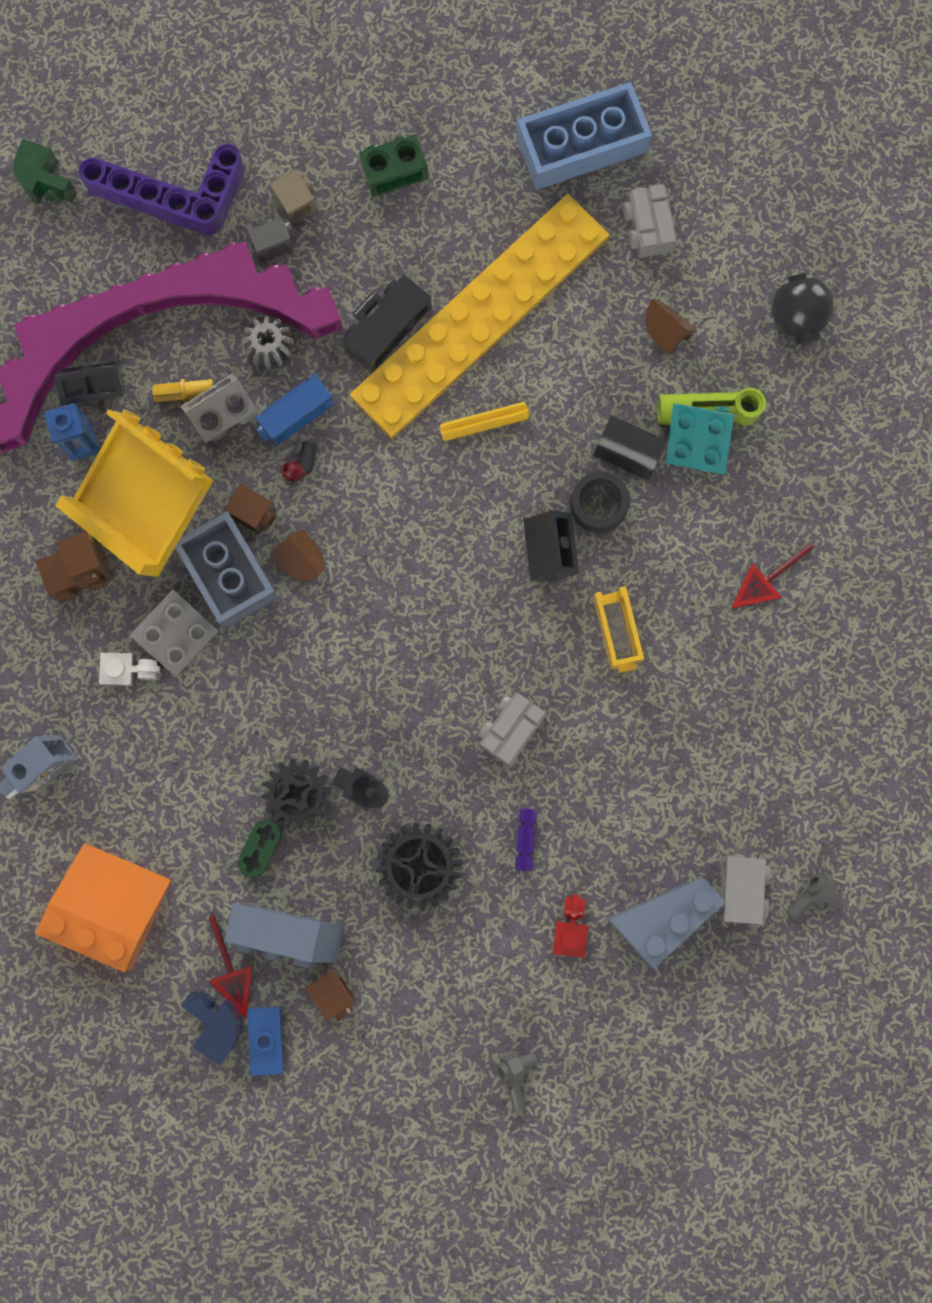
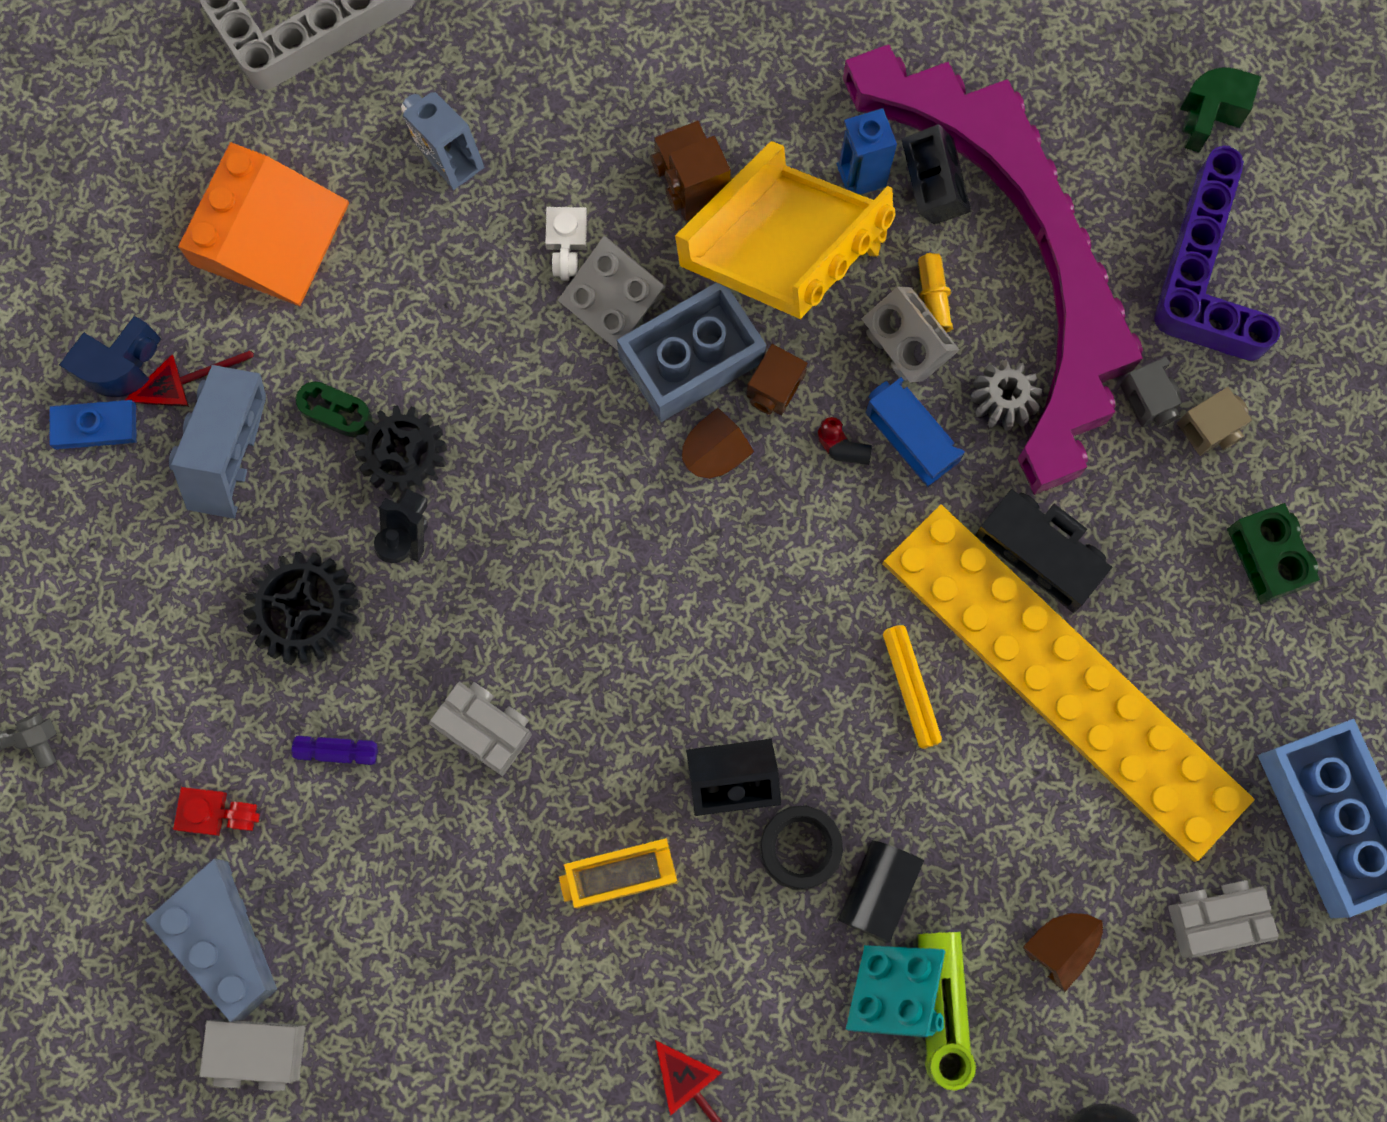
camera: 90 degrees right, 5 degrees down
(331, 996) = (141, 501): reddish brown brick -> none

